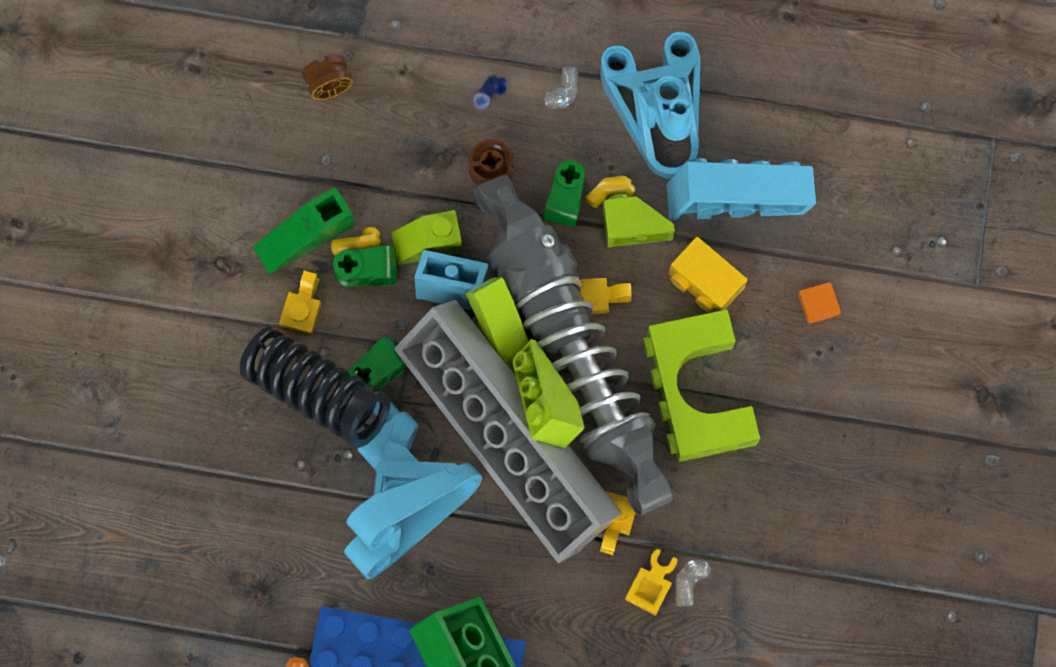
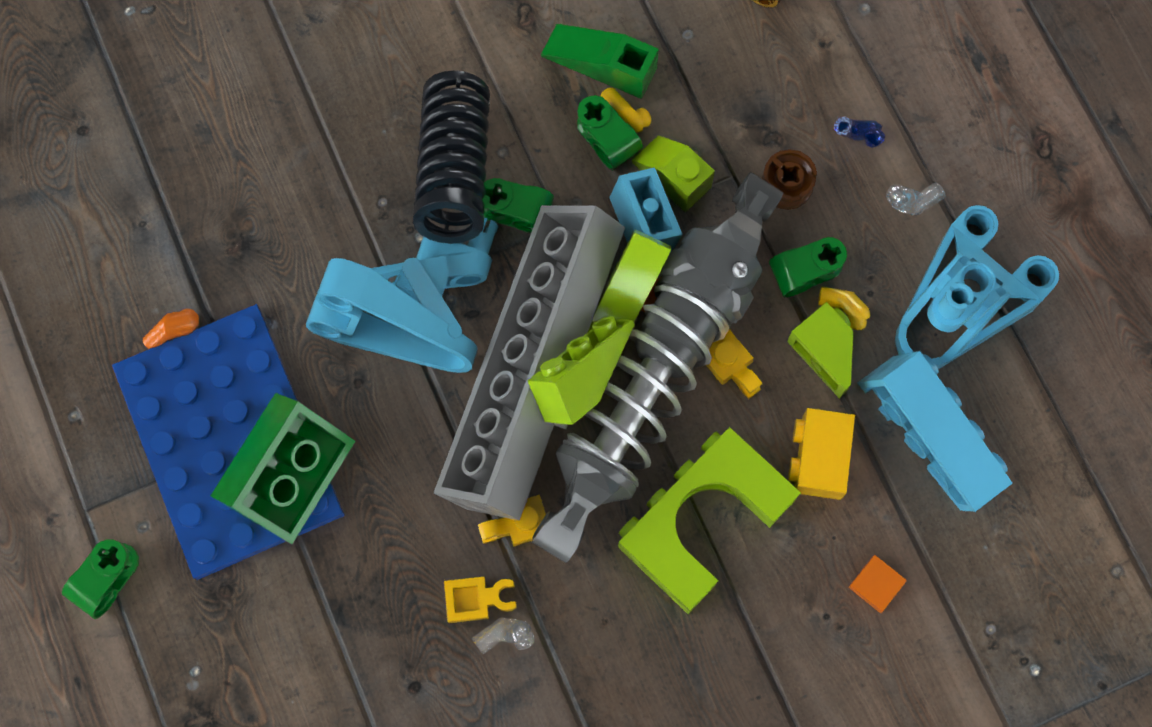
camera: 60 degrees right, 0 degrees up
(301, 309) = (528, 105): yellow plate -> none

